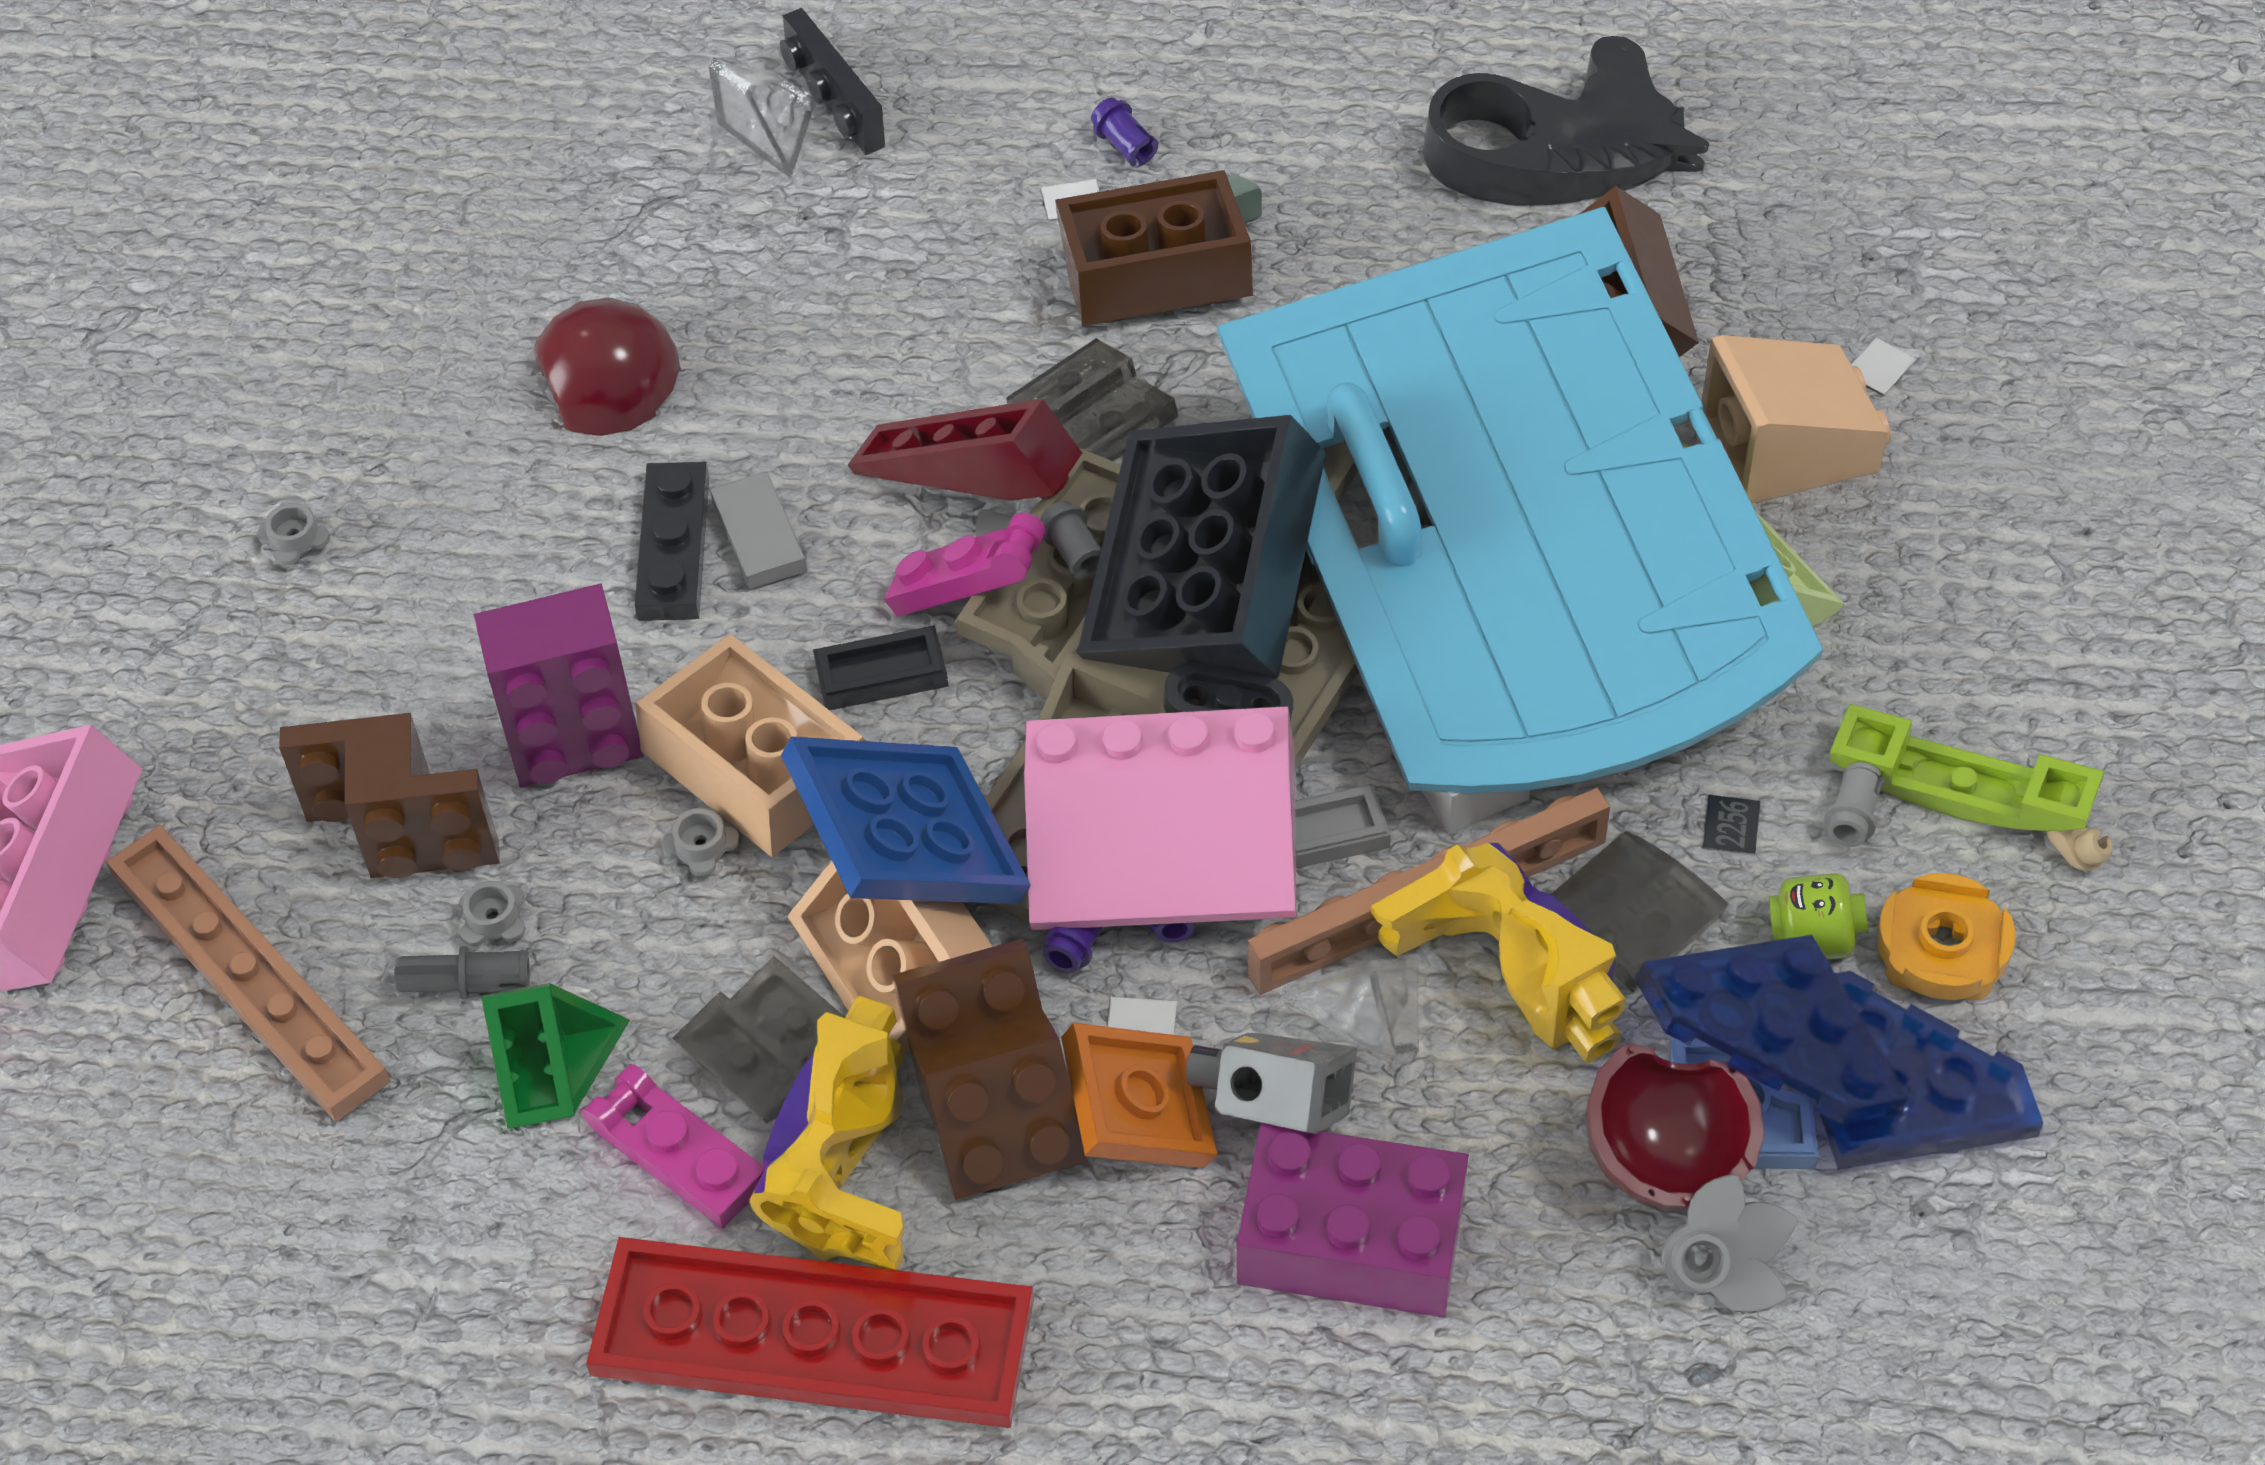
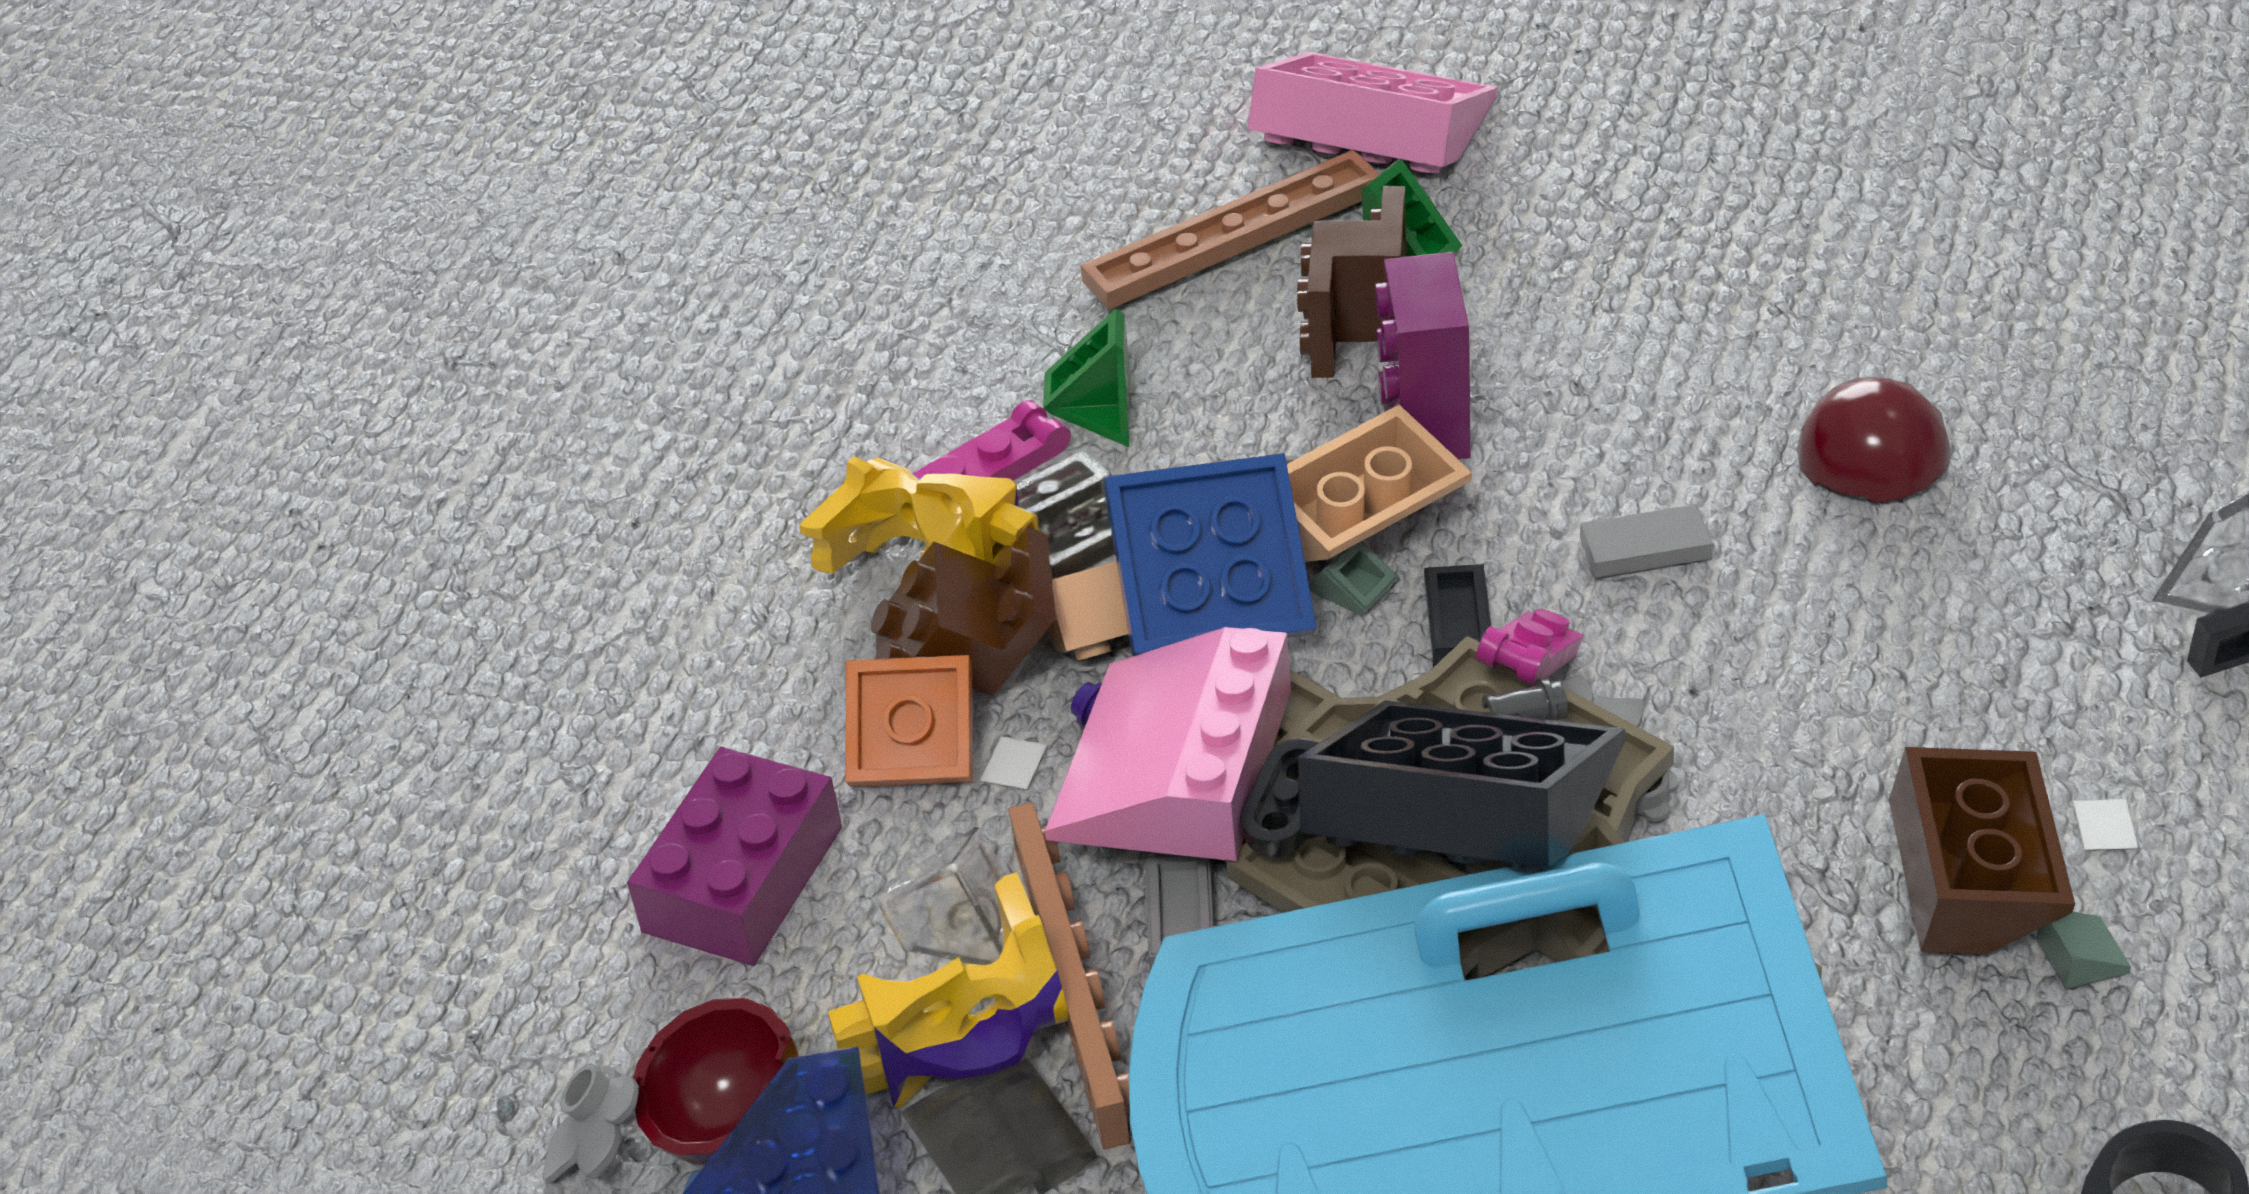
camera: 105 degrees right, 10 degrees down
(239, 795) = (1425, 226): none -> green slope
(292, 533) = (1694, 250): light grey plate -> none
(463, 972) = (1191, 344): dark grey axle -> none
(488, 899) = (1249, 360): light grey plate -> none
(672, 541) = (1643, 483): black plate -> none
(812, 1332) = (756, 558): red plate -> none
(985, 452) = (1670, 663): dark red slope -> none
(1099, 398) = (1775, 778): clear smoke slope -> none
(1114, 121) = (2210, 859): dark purple pin -> none
(1300, 1085) = (878, 811): dark grey torso -> none

